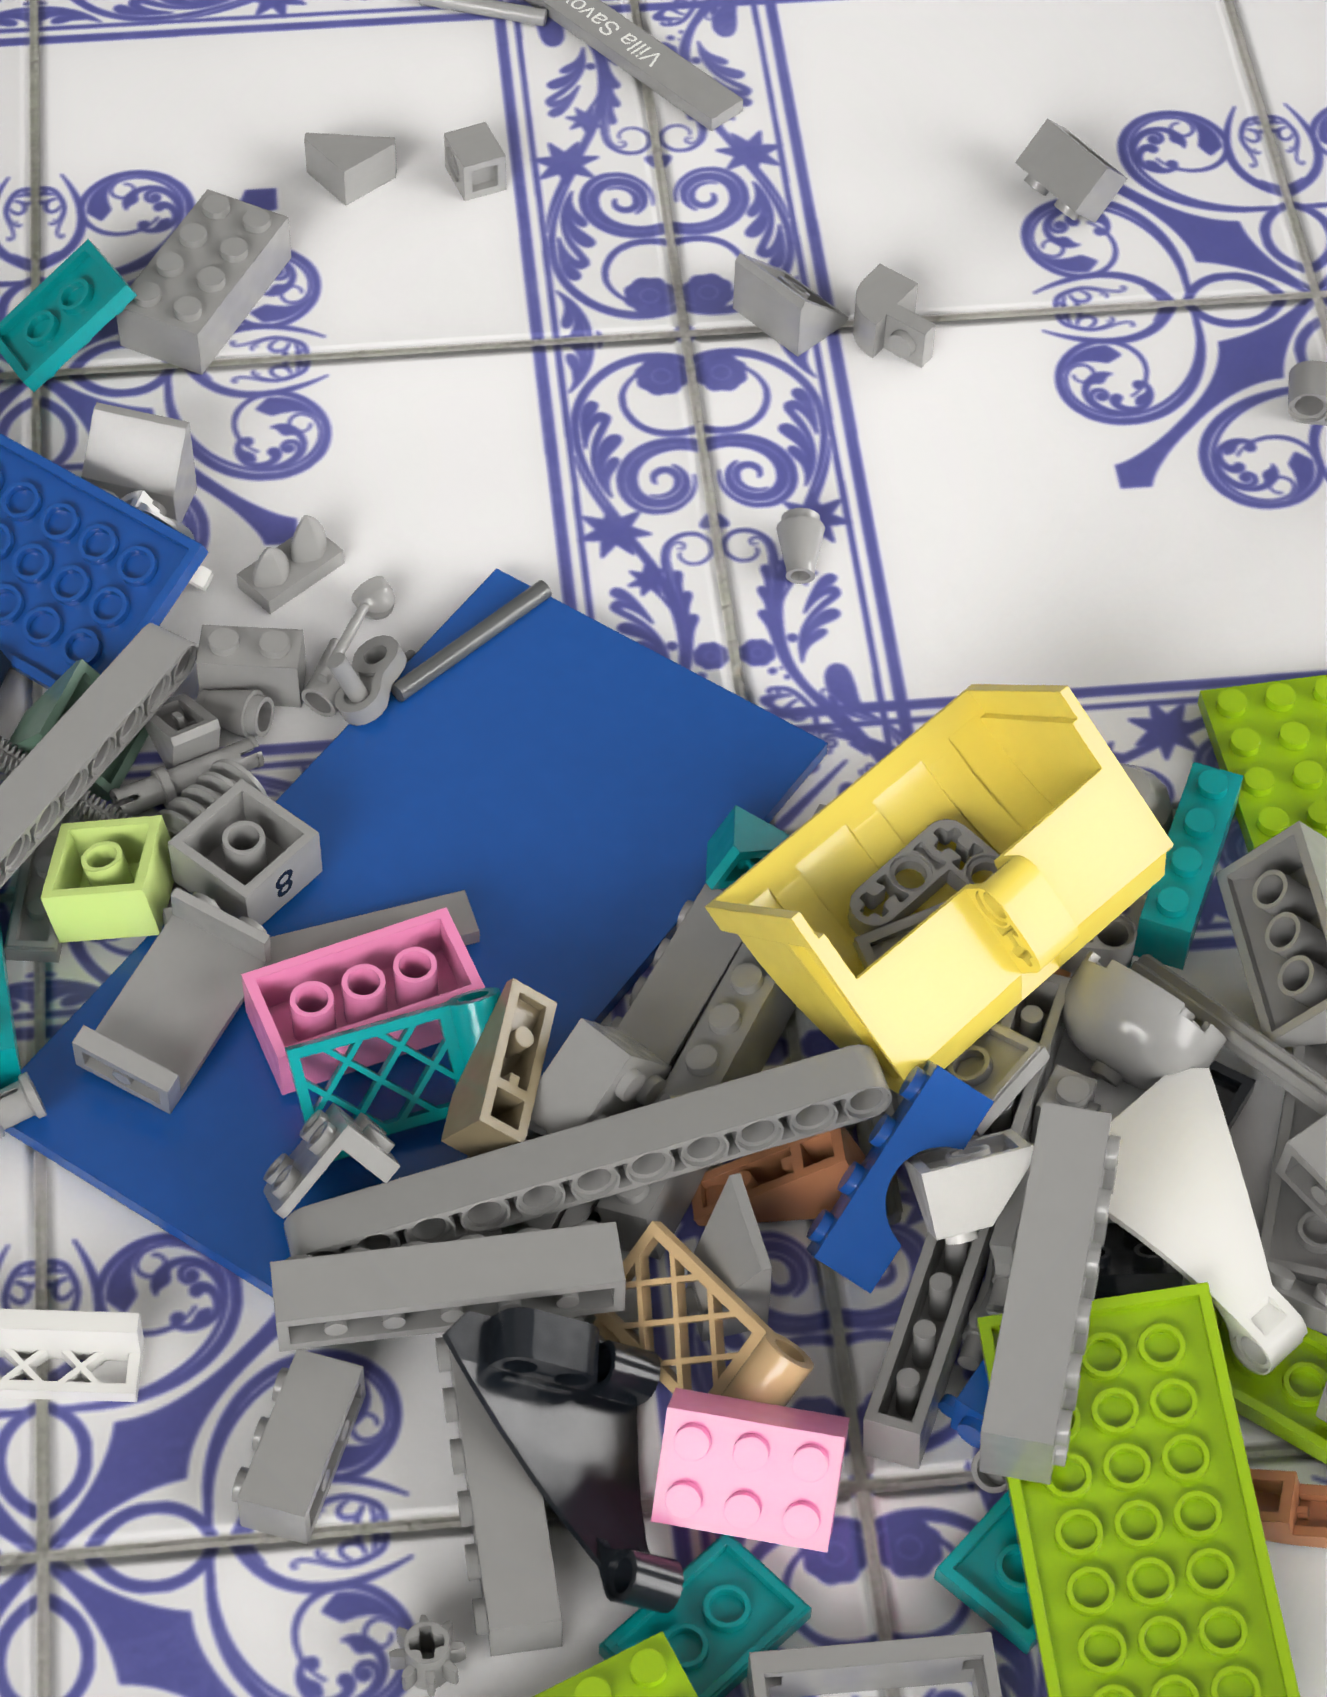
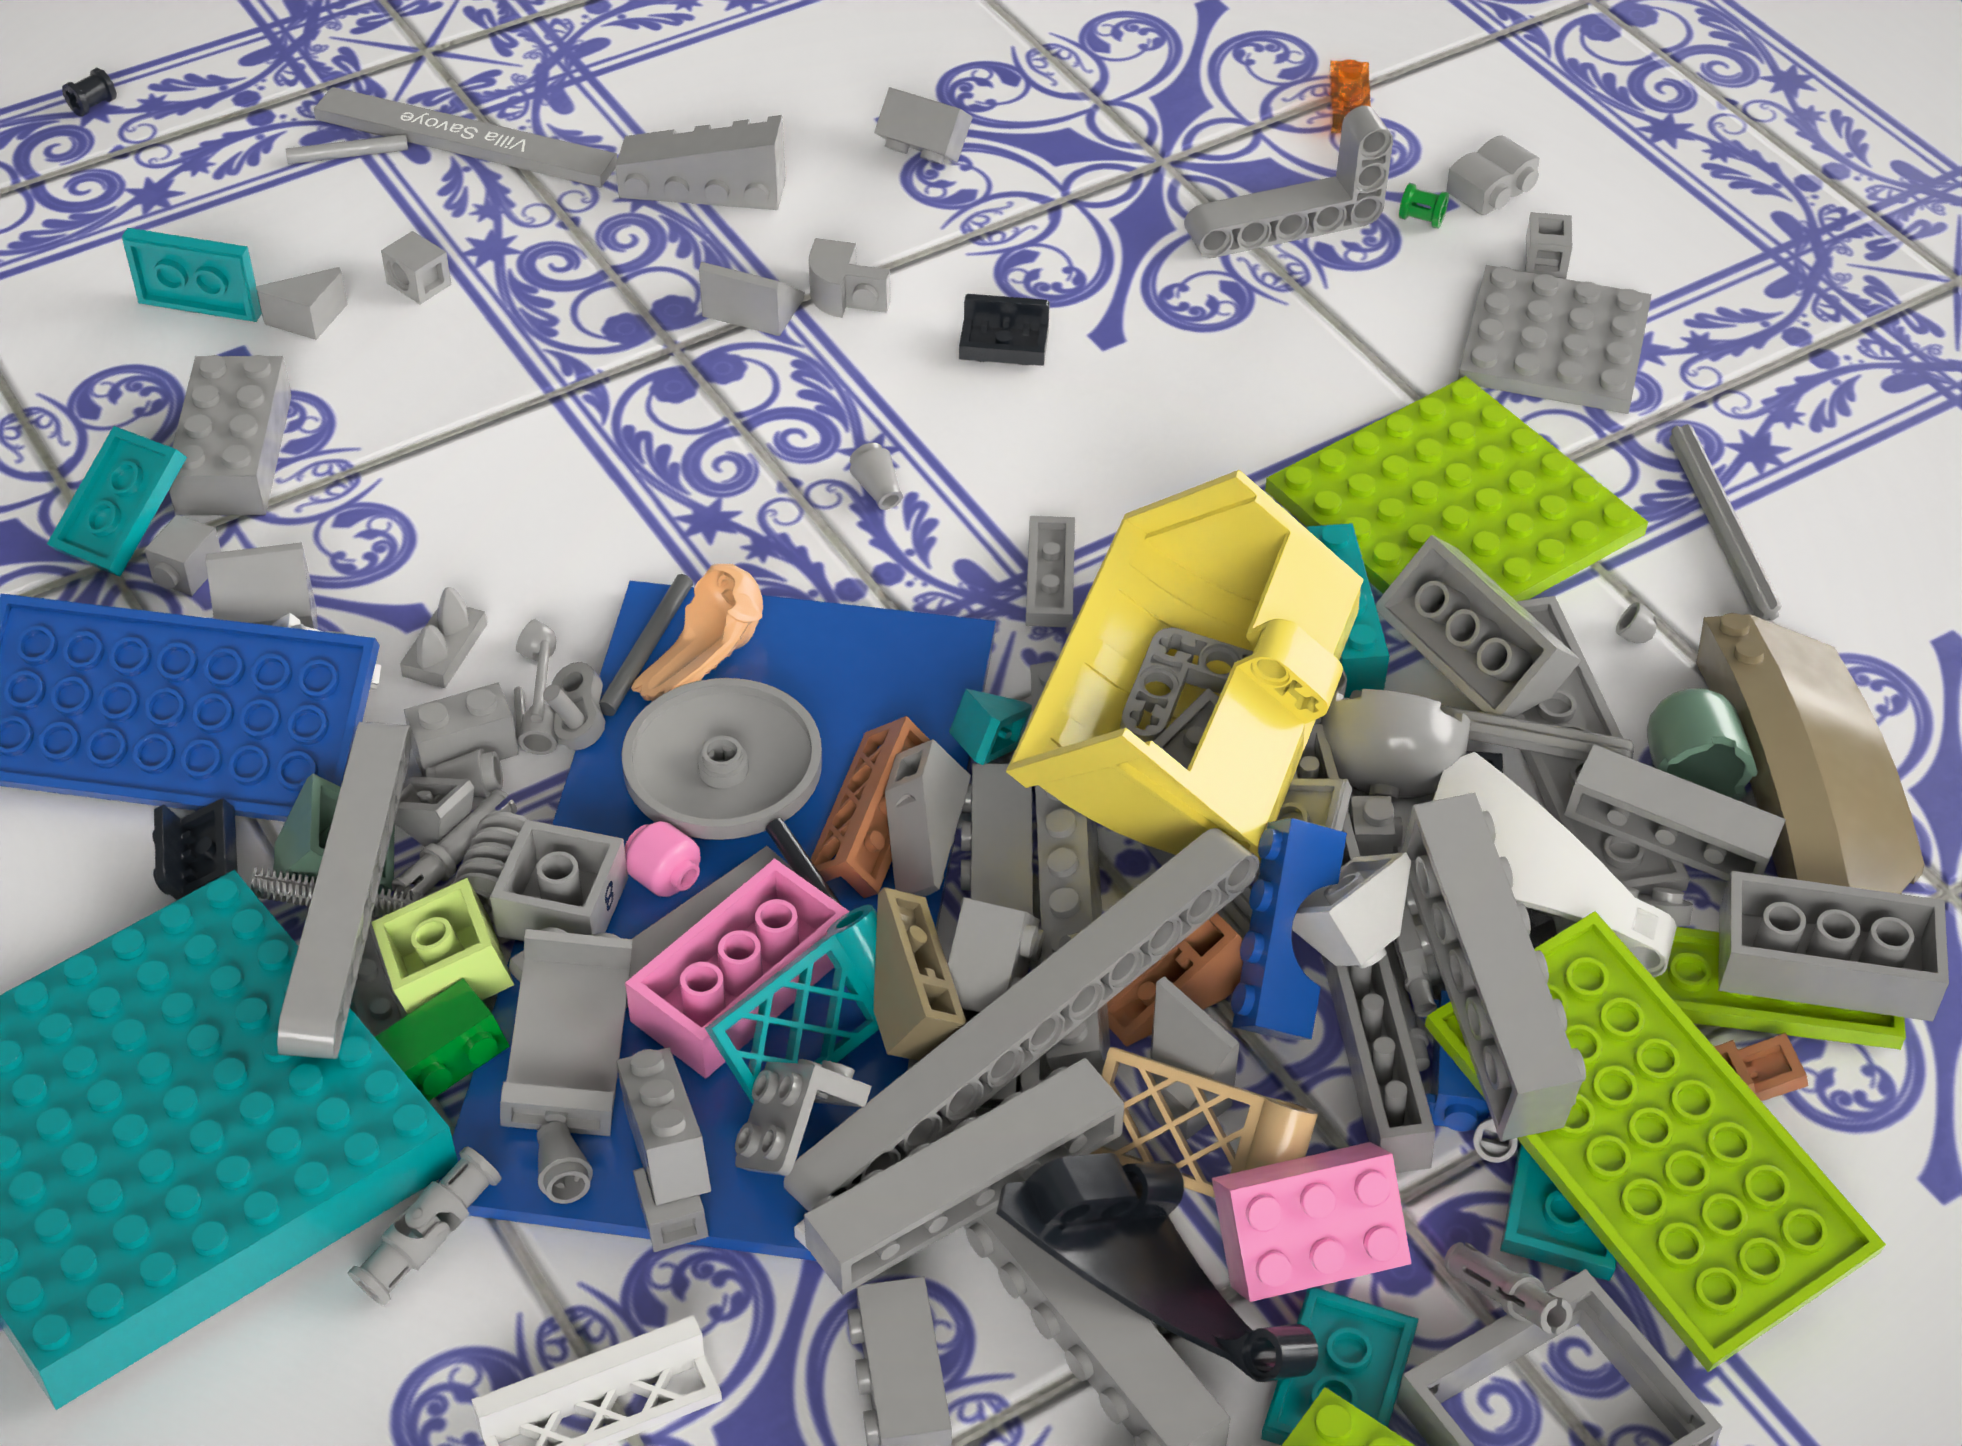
camera: 25 degrees left, 5 degrees down
(65, 963) = (444, 1039): none -> green brick
(97, 380) = (179, 554): none -> light grey brick
(106, 1123) = (562, 1167): none -> light grey cone
(176, 1206) = (670, 1222): none -> light grey panel
(202, 1125) = (663, 1125): none -> light grey brick
(252, 99) = (192, 274): none -> teal tile
(357, 863) = (662, 858): none -> bright pink head
(466, 786) = (722, 758): none -> light grey dish
(483, 927) = (797, 856): none -> black bar
(543, 648) = (716, 624): none -> light nougat hair
(588, 891) = (859, 821): none -> nougat fence
(624, 915) = (923, 814): none -> light grey slope
(821, 145) = (706, 166): none -> light grey wedge
(902, 1625) = (1519, 1294): none -> light grey pin
(921, 694) = (1050, 571): none -> light grey plate
(1021, 432) = (1004, 329): none -> black bracket

